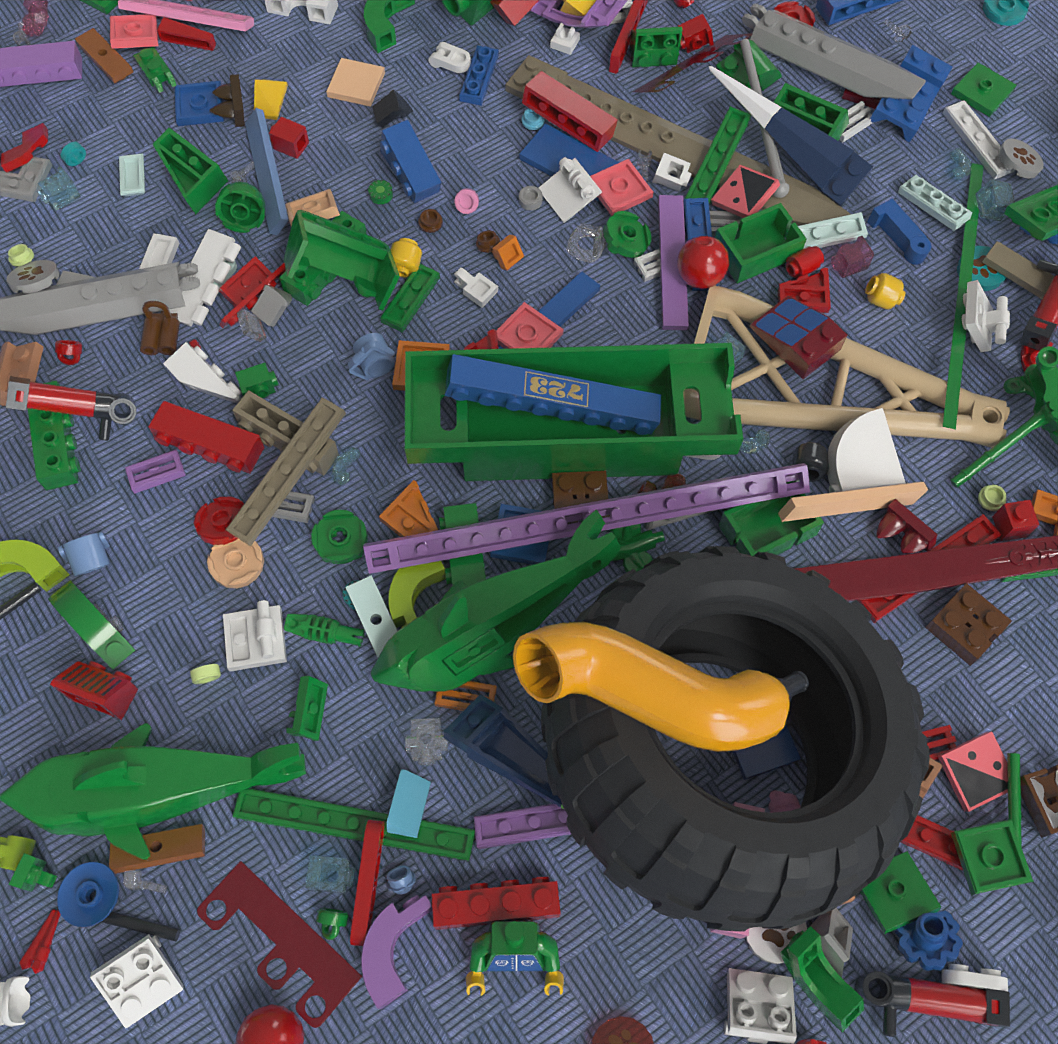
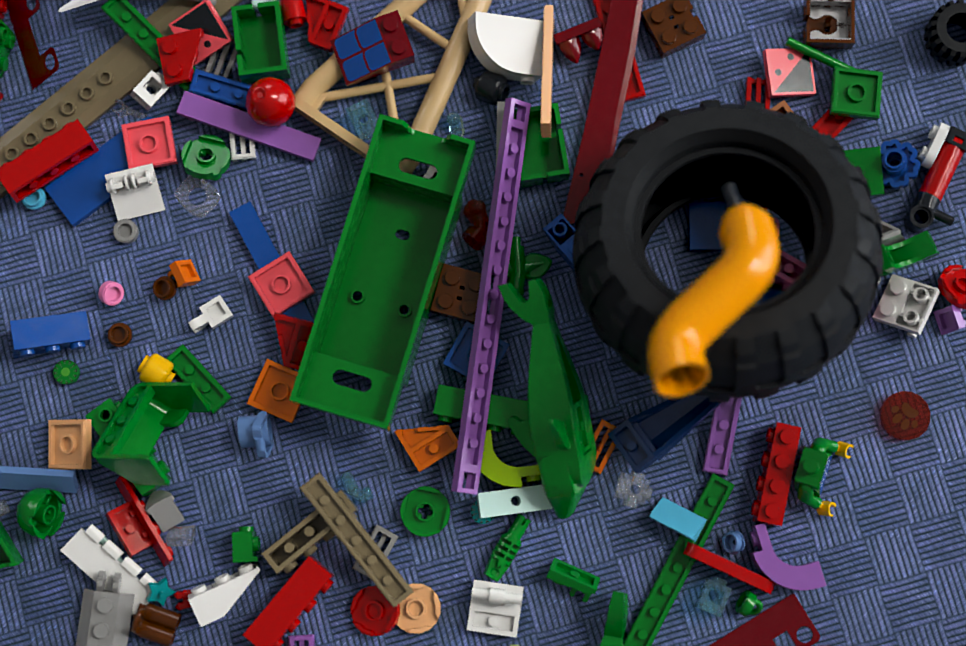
camera: 65 degrees left, 15 degrees up
(160, 251) = (61, 606): white tile -> none
(192, 325) = (159, 591): none -> teal piece
(552, 395) = (365, 285): blue brick -> none
(713, 179) = (178, 55): none -> red wing

